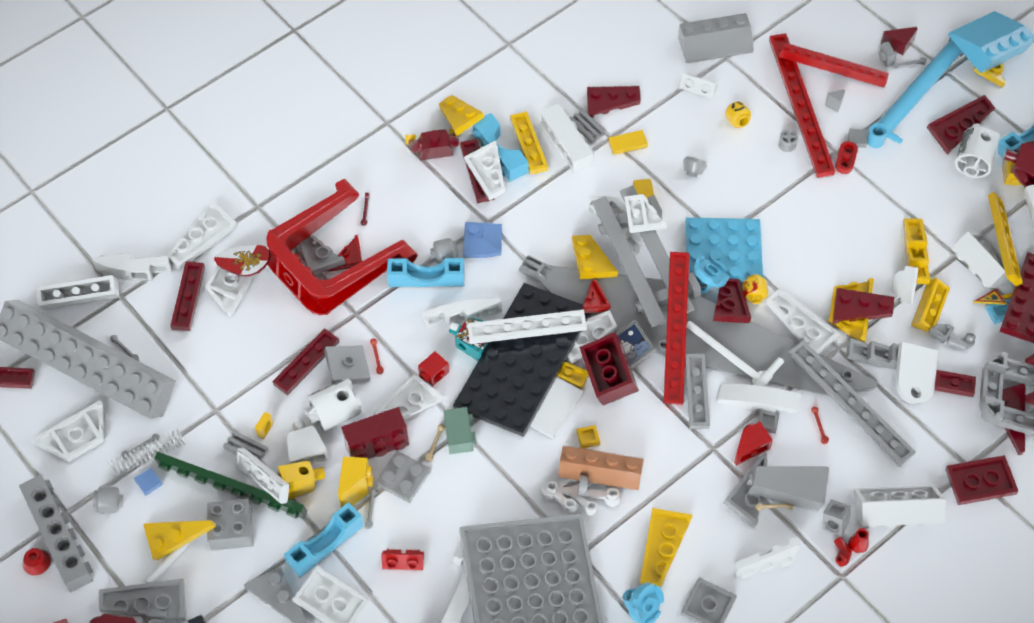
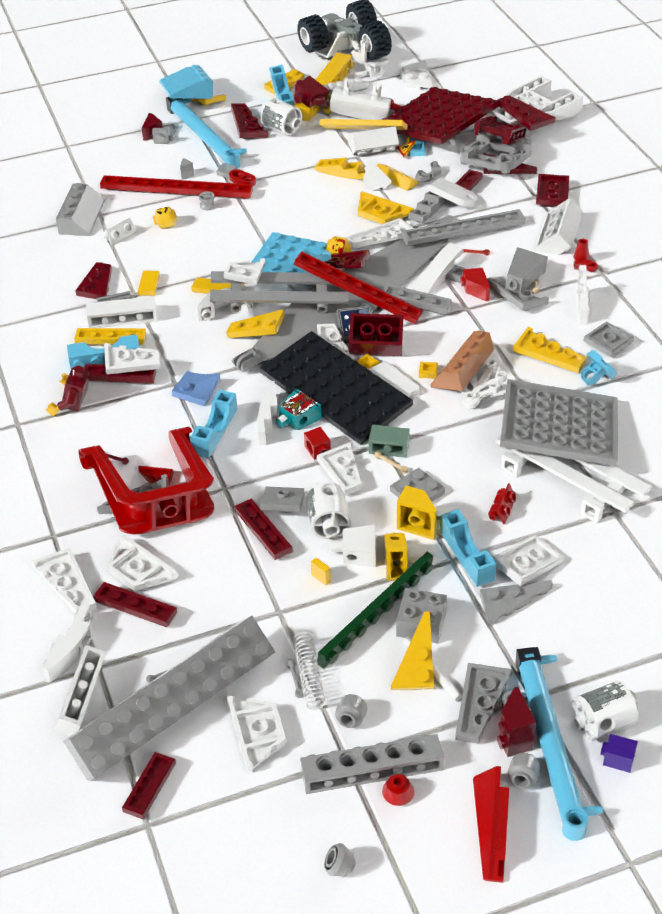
camera: 70 degrees left, 15 degrees down
(148, 481) = (341, 677): medium blue tile -> none
(232, 440) = (334, 591): light grey tile -> none
(244, 259) = (127, 540): shield -> none
(262, 475) = (383, 573): white tile -> none
(376, 435) = (375, 488): dark red brick -> none
(379, 370) = (296, 483): clear red hinge -> none
(444, 249) = (194, 411): light grey head -> none
(459, 114) = (54, 364): yellow wing -> none
(526, 326) = (313, 367): white plate -> none
(582, 485) = (480, 374): light grey tile -> none
(595, 299) = (300, 327): red tile -> none
(694, 166) = (200, 250): light grey cone -> none
(759, 378) = (420, 265): white bar -> none
(833, 65) = (152, 160): red piece -> none
(836, 517) = (560, 255): light grey brick -> none
(858, 305) = (383, 201): dark red wing -> none

